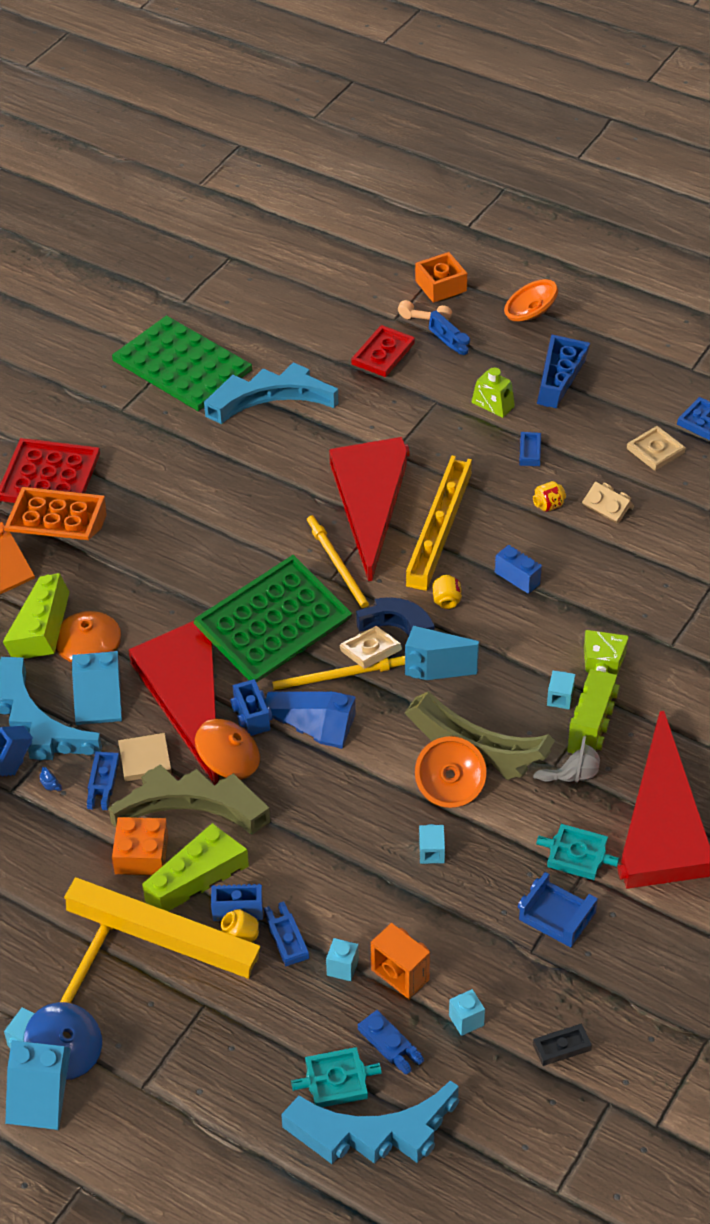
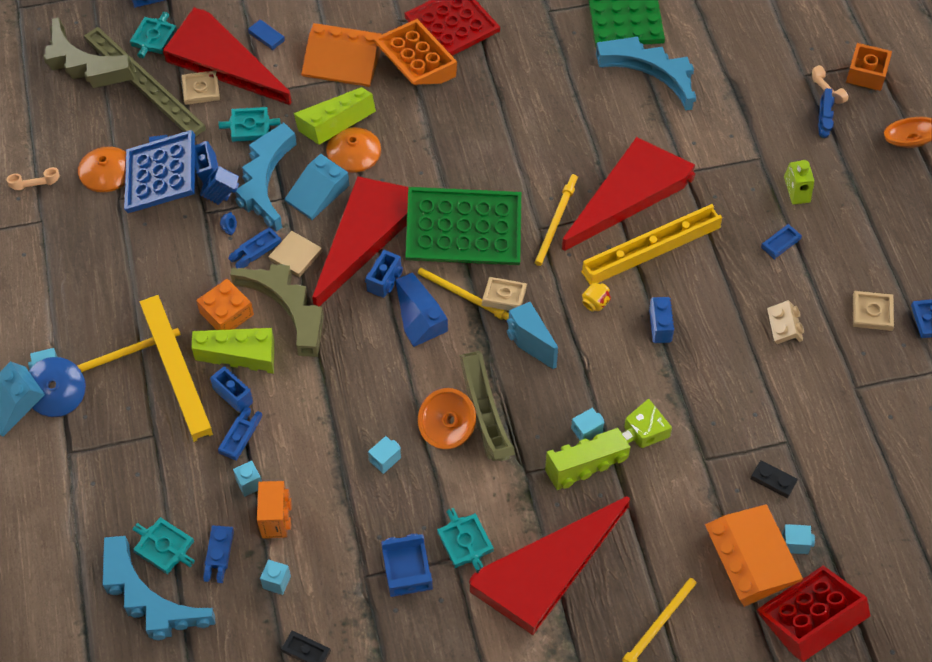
camera: 45 degrees right, 10 degrees up
(227, 748) = (329, 294): orange dish -> none
(240, 925) = (216, 406): yellow head -> none
(383, 351) = (764, 93): red plate -> none
(395, 613) = (547, 284): dark blue arch -> none
(549, 496) = (747, 285): yellow head -> none
(561, 366) = (870, 198): blue wedge -> none
(579, 767) = (532, 487): light grey piece -> none

